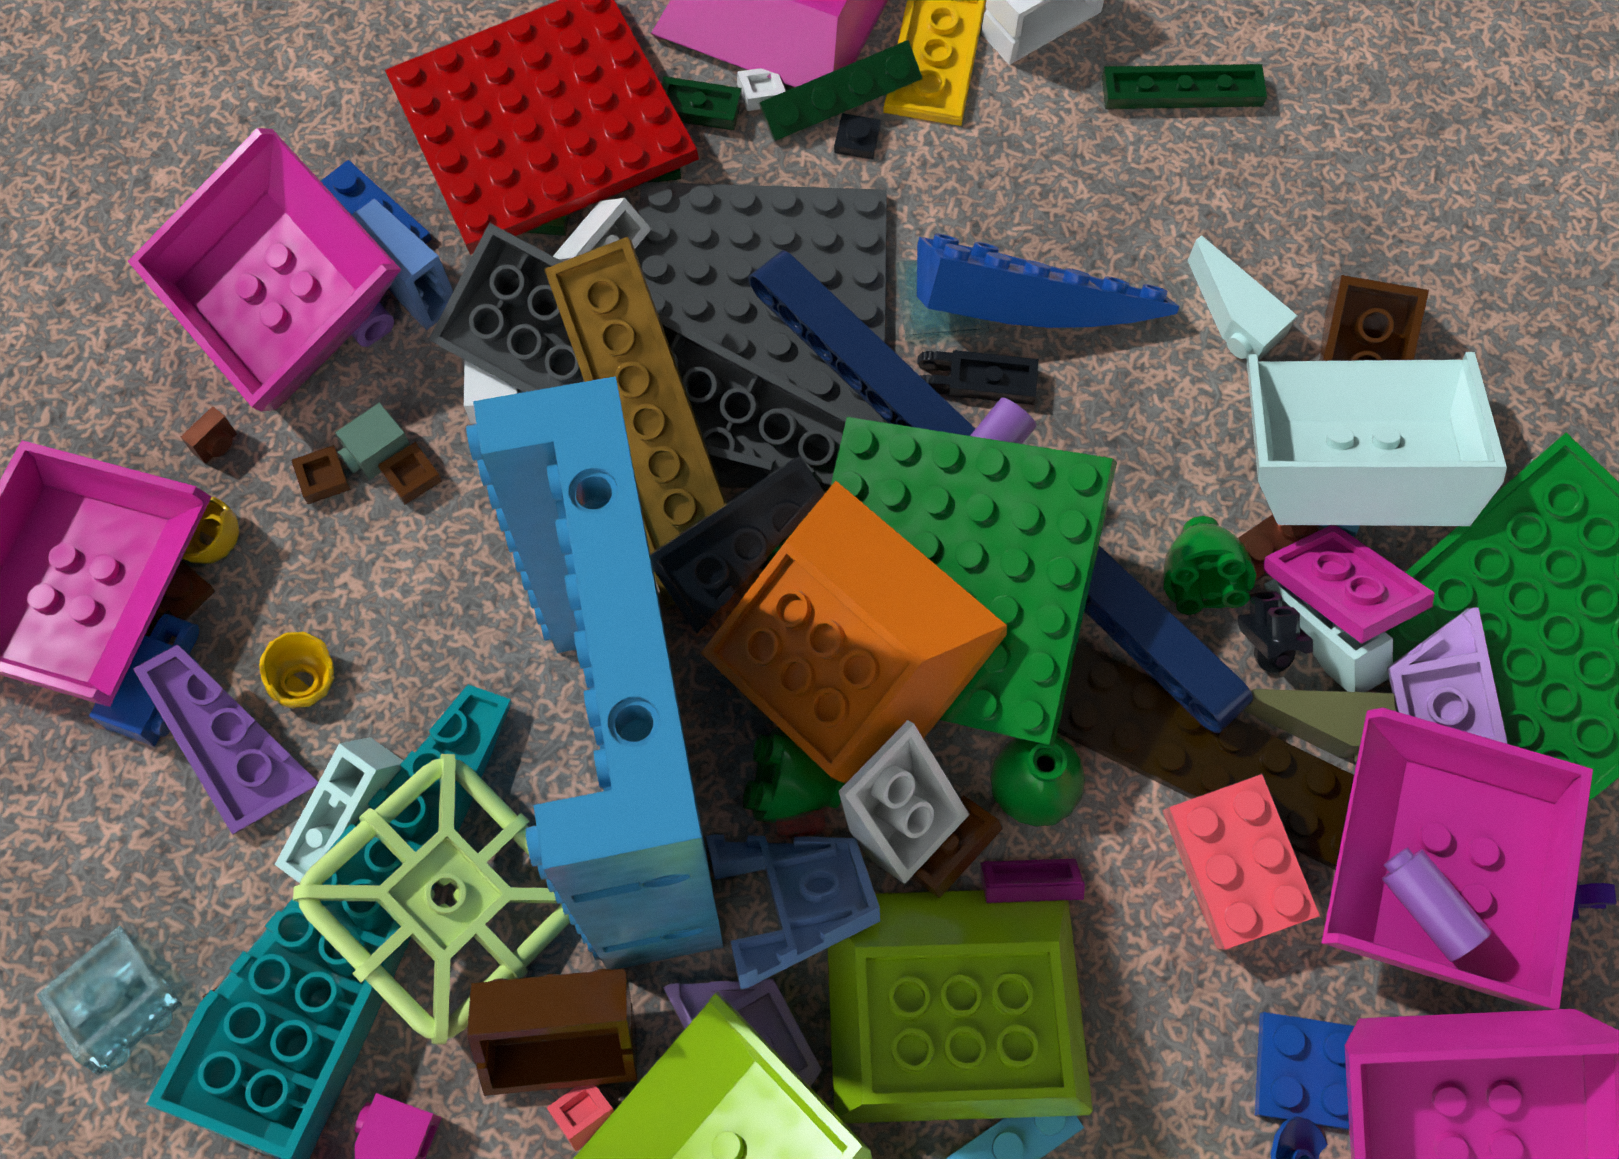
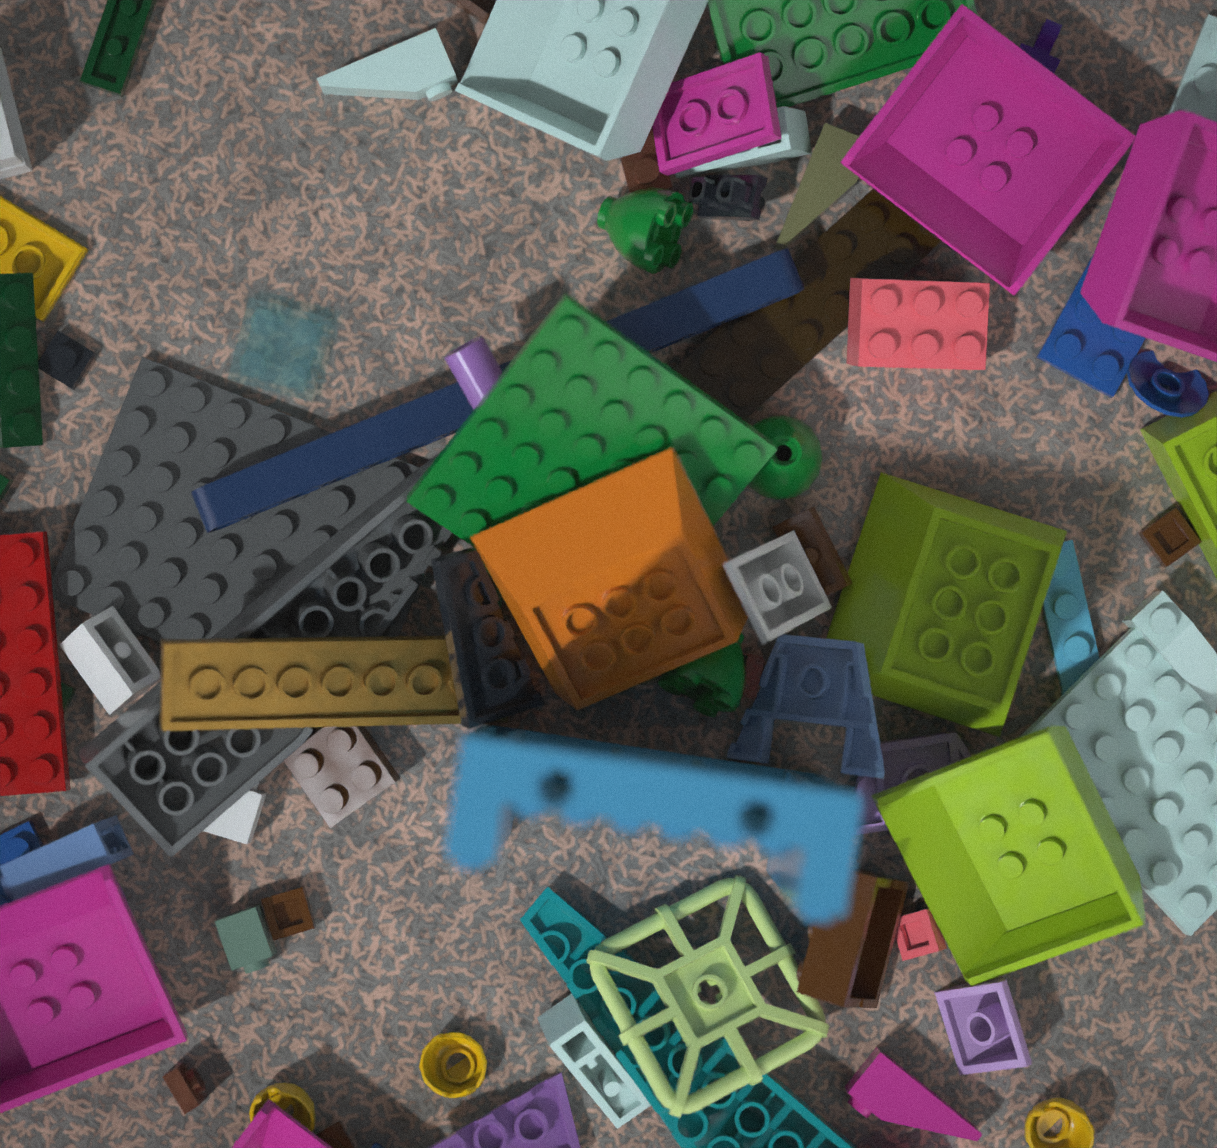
camera: 70 degrees left, 20 degrees up
(320, 474) = (260, 995): reddish brown plate -> none
(982, 375) = (381, 346): black hinge -> none
(1027, 292) = (313, 270): blue wedge -> none
(1031, 880) = (865, 499): magenta tile -> none
(1435, 903) = (1015, 186): medium lavender brick -> none
(1450, 679) = (842, 76): lavender wing -> none

